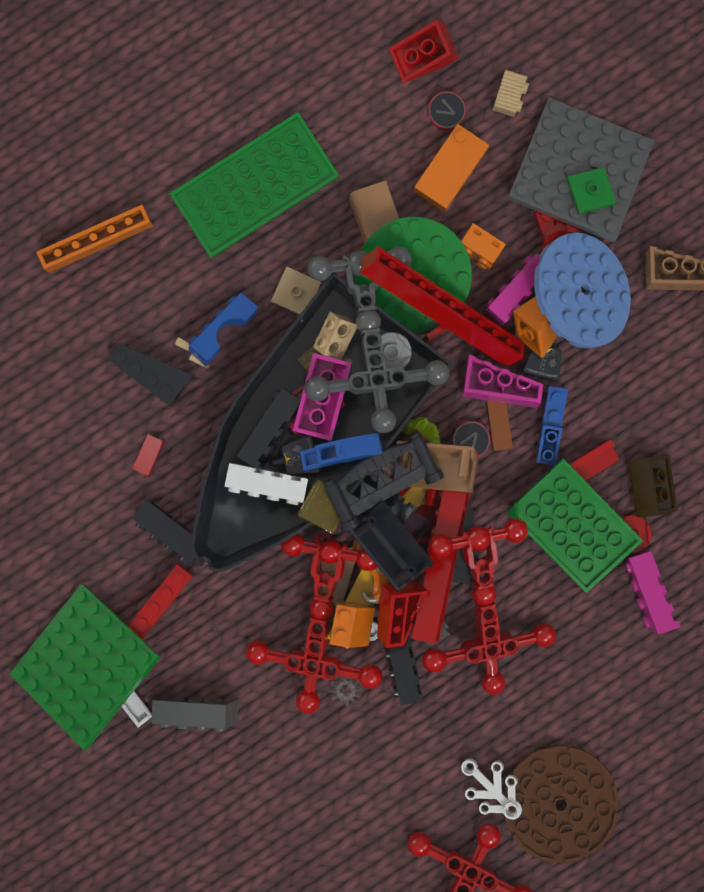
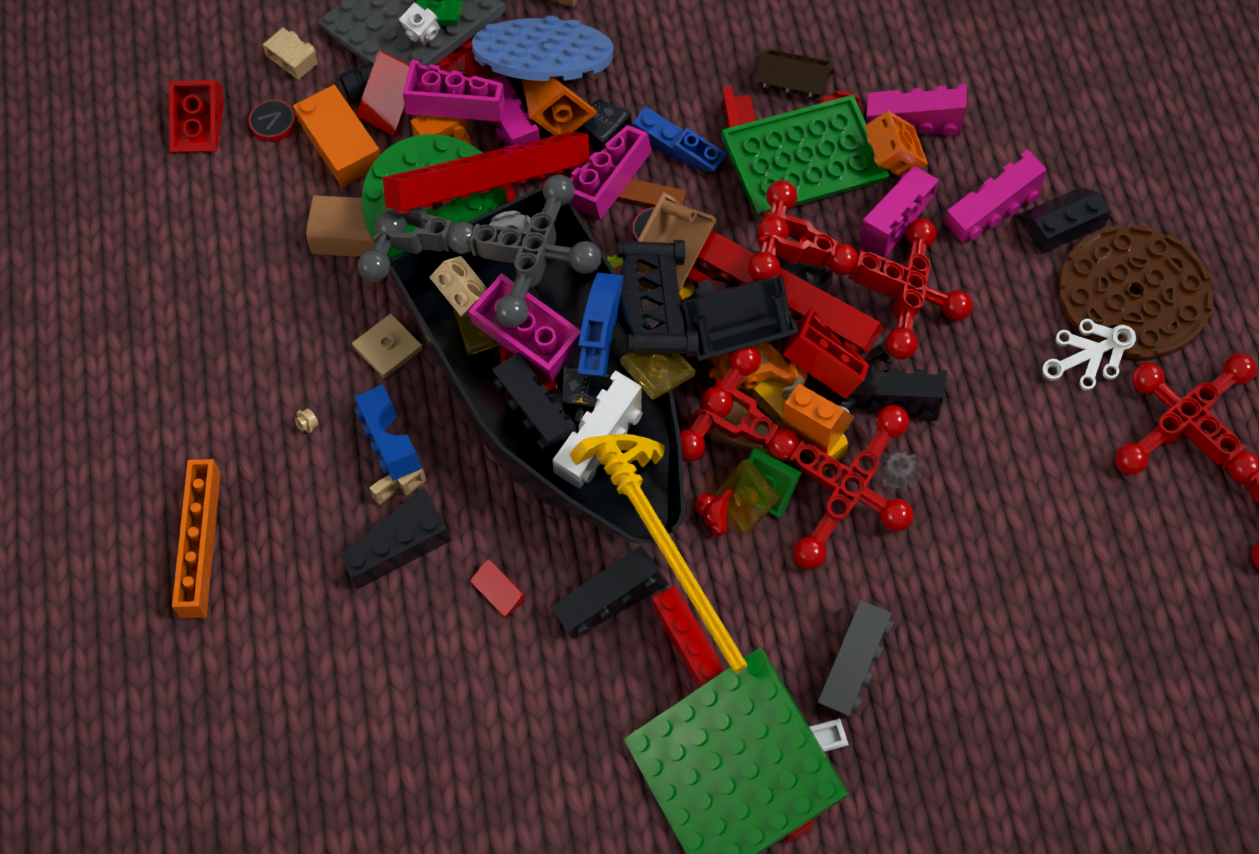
camera: 60 degrees left, 25 degrees down
(213, 265) = (306, 420): none -> tan plate
(254, 185) = (238, 343): green plate -> none
(262, 519) = (618, 465): none -> yellow piece
(262, 576) = (714, 511): none -> red animal
(279, 595) = (750, 498): none -> clear yellow plate
(295, 605) = (779, 476): none -> green plate
(499, 189) = (383, 97): none -> tile
(501, 244) = (451, 95): none -> dark pink wedge
(504, 160) = (355, 82): none -> black wheel
(556, 612) = (901, 206): none -> dark pink wedge
(561, 181) = (420, 24): none -> white brick
(595, 679) = (997, 198): none -> dark pink wedge
(604, 732) = (1065, 218): none -> black slope
(610, 590) = (895, 144): none -> orange piece

